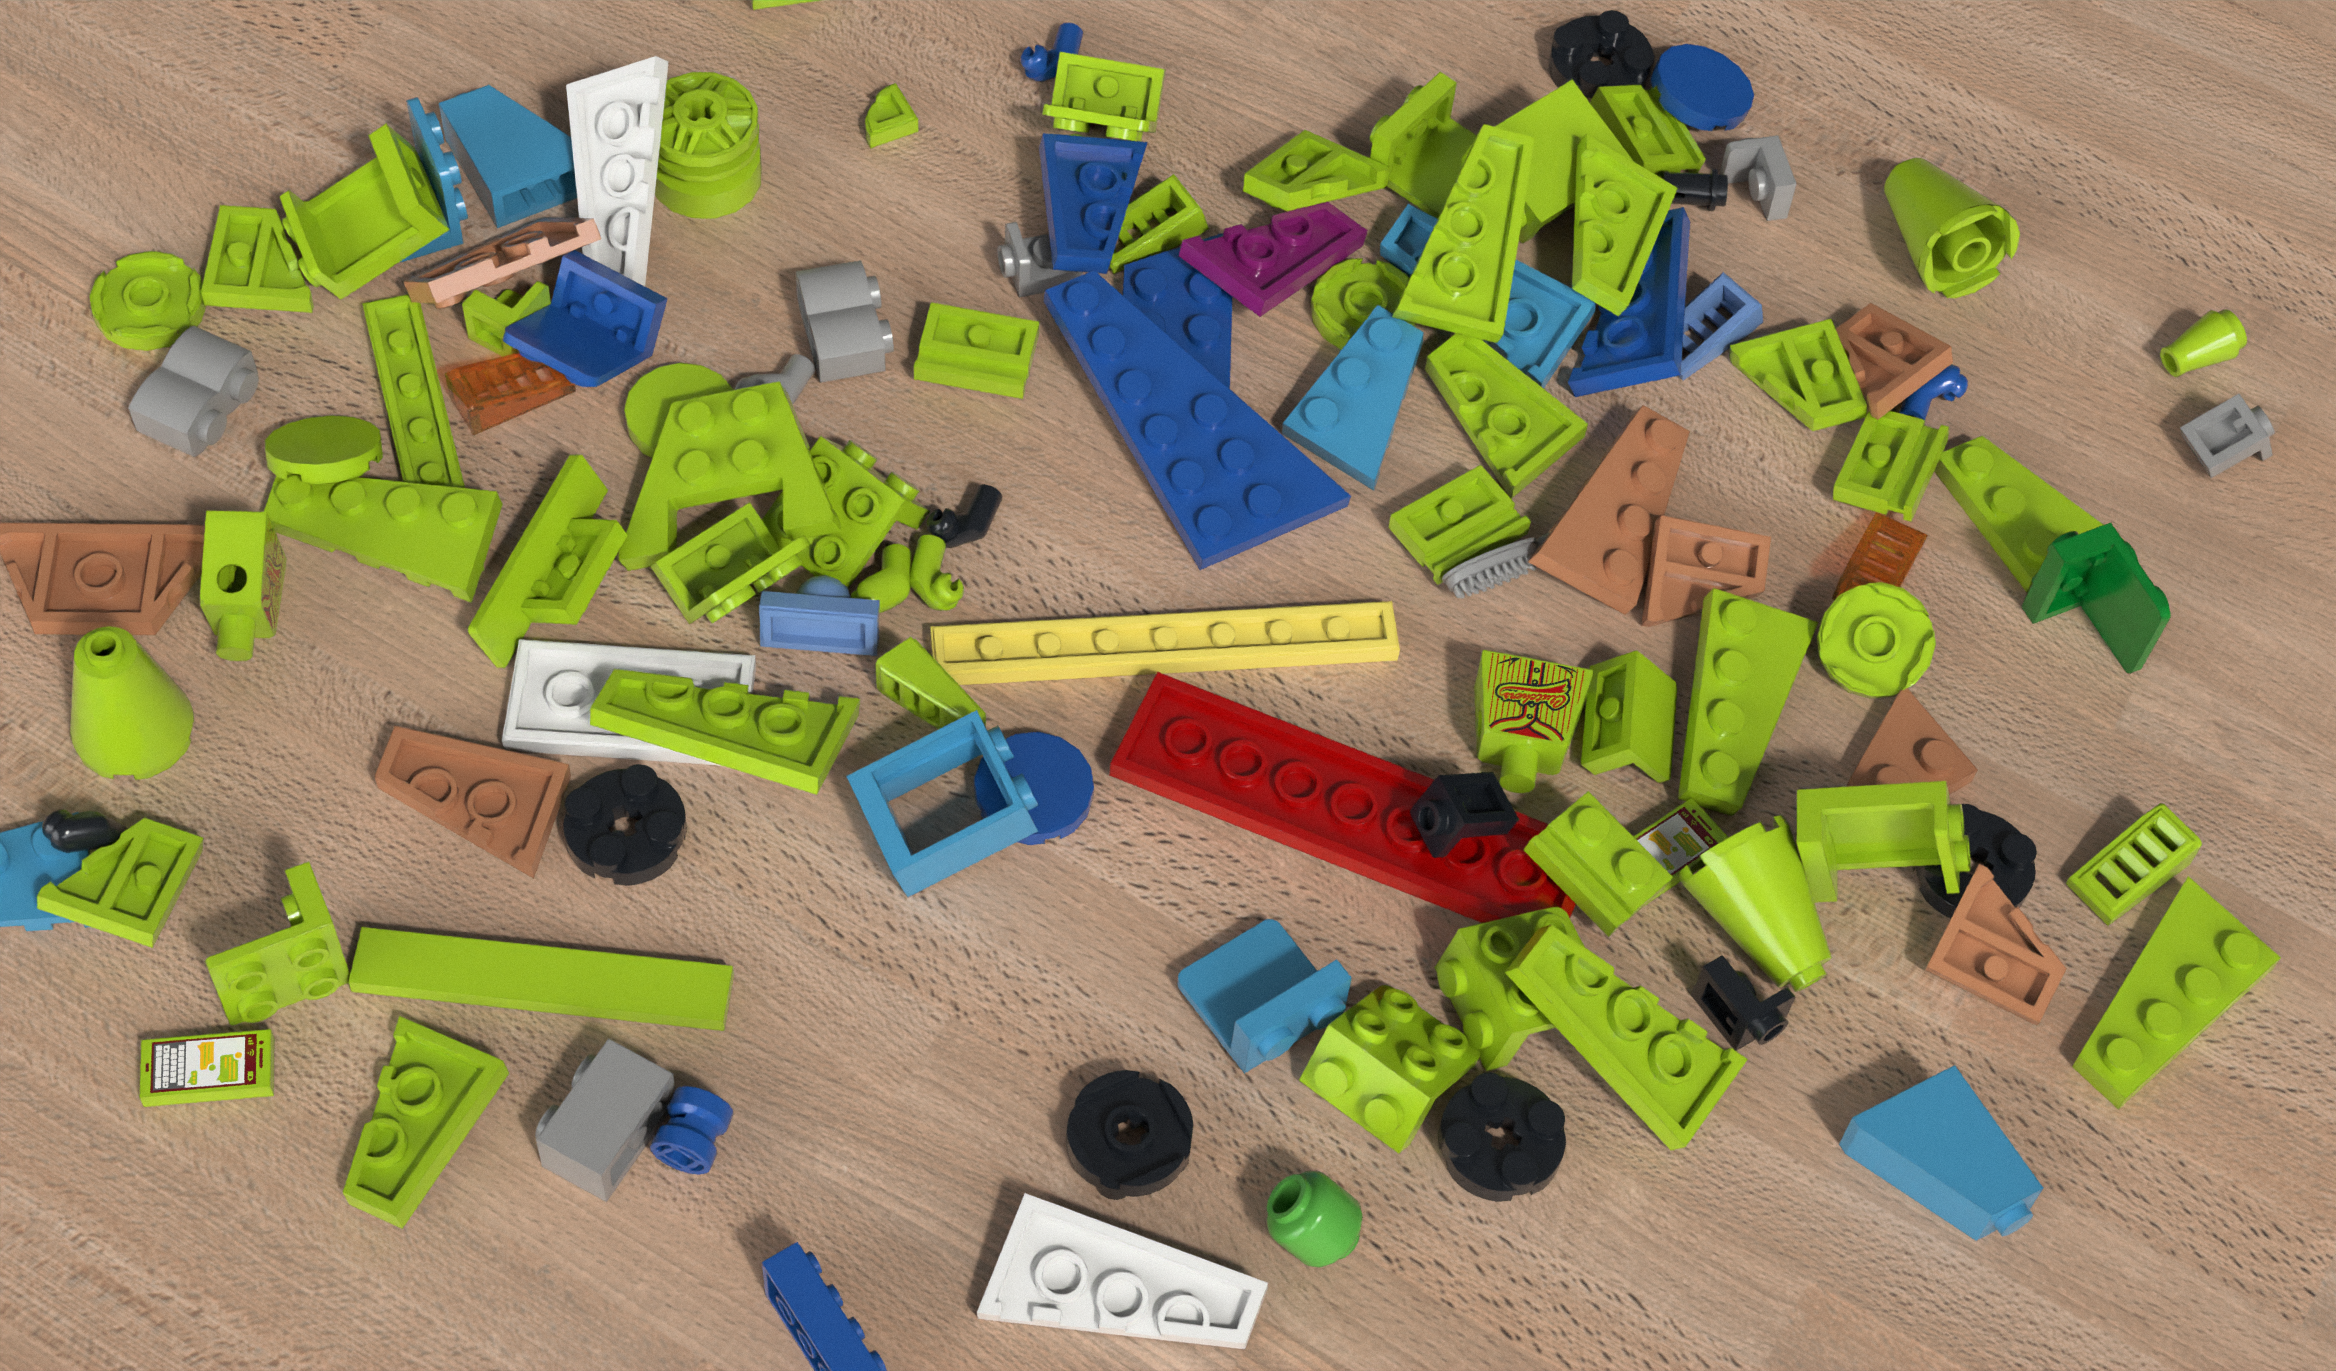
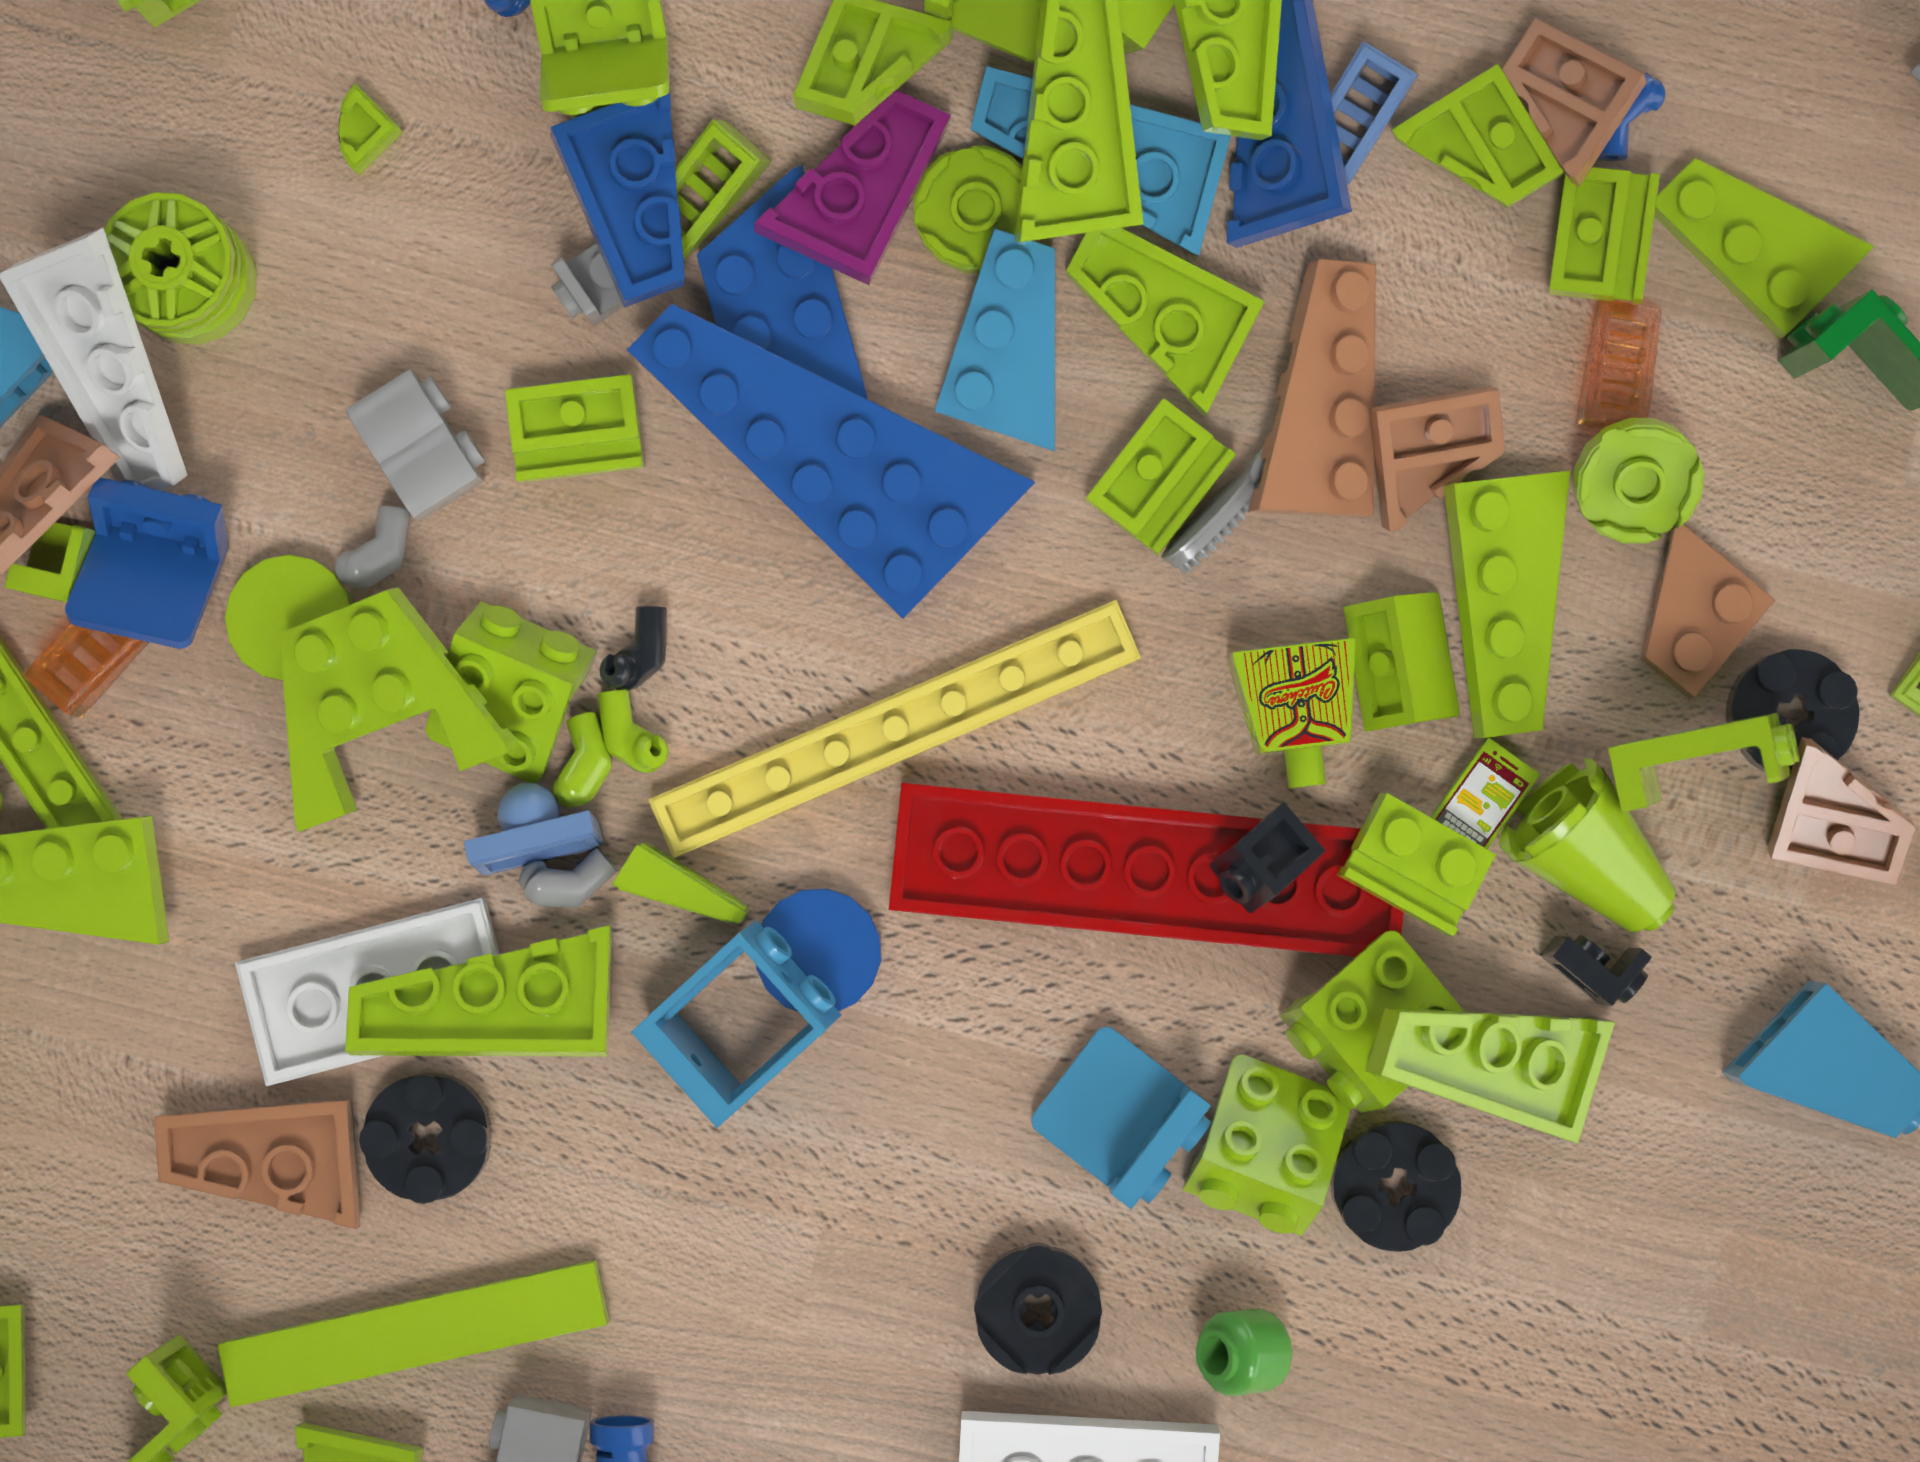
camera: 10 degrees left, 30 degrees up
(553, 564) = (235, 865): lime bracket -> none
(719, 565) = (419, 814): lime bracket -> none
(830, 670) = (566, 888): none -> light grey arm

